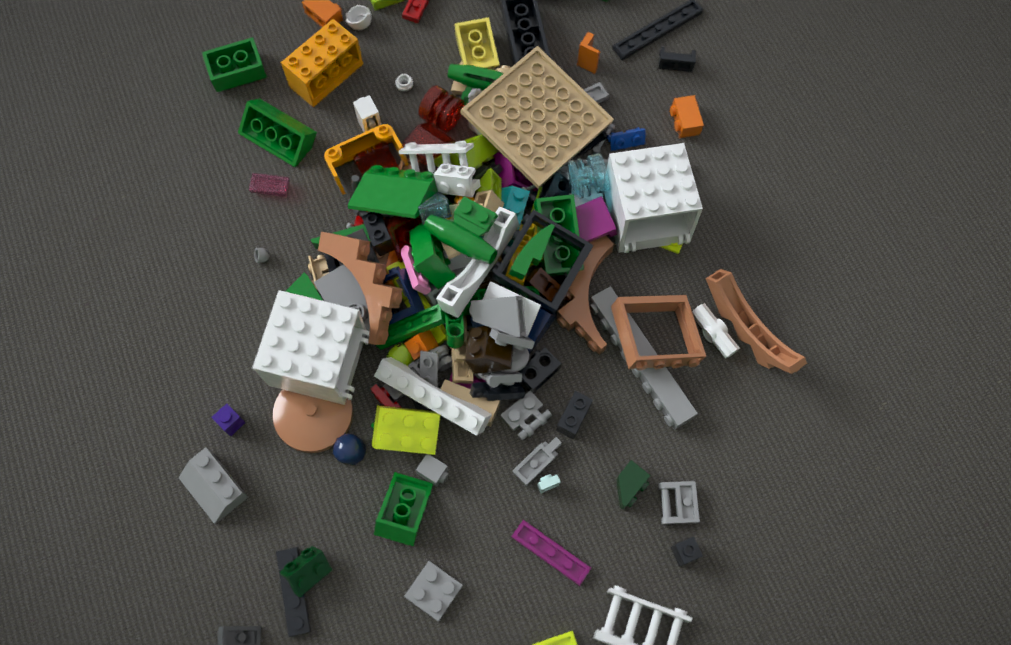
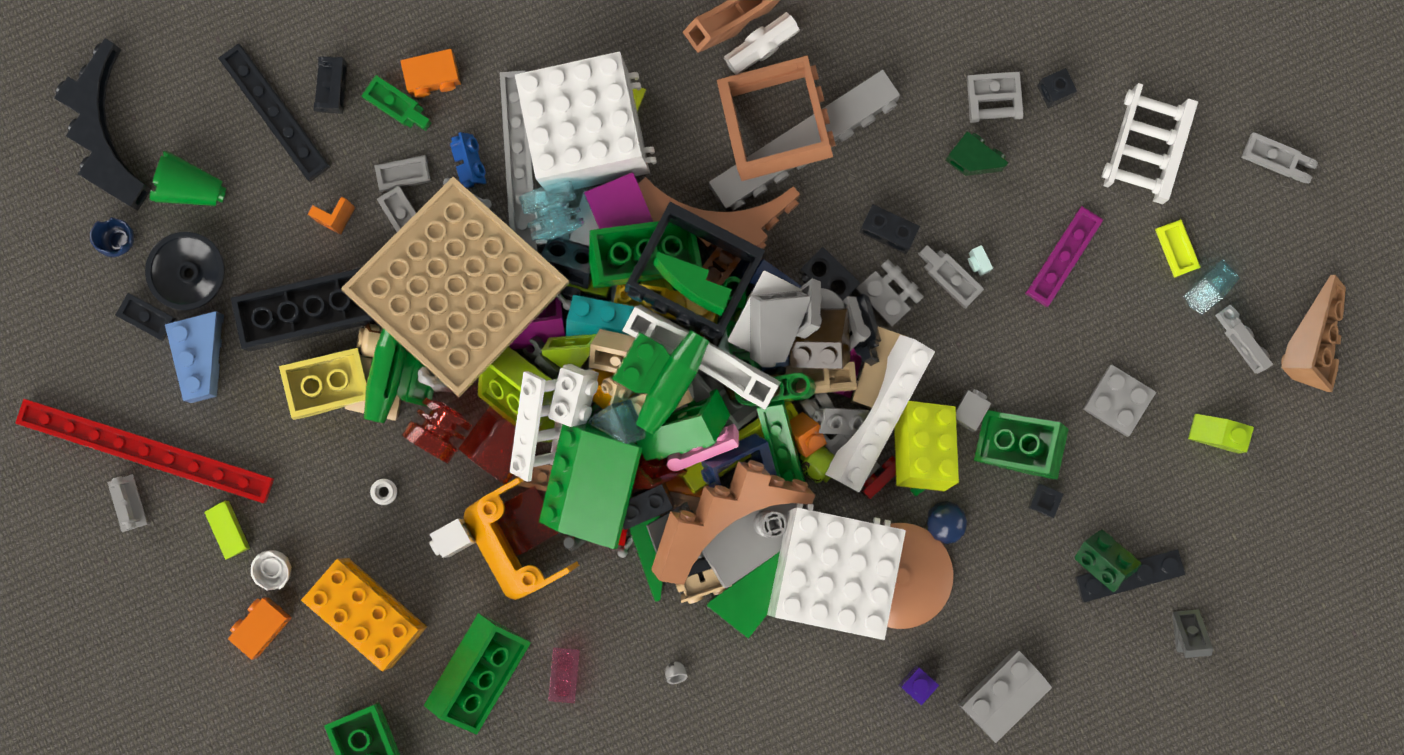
camera: 90 degrees left, 15 degrees up
(358, 525) = (1045, 500): none -> black plate
(618, 100) = (402, 173): none -> light grey tile
(664, 96) = (395, 104): none -> green hinge

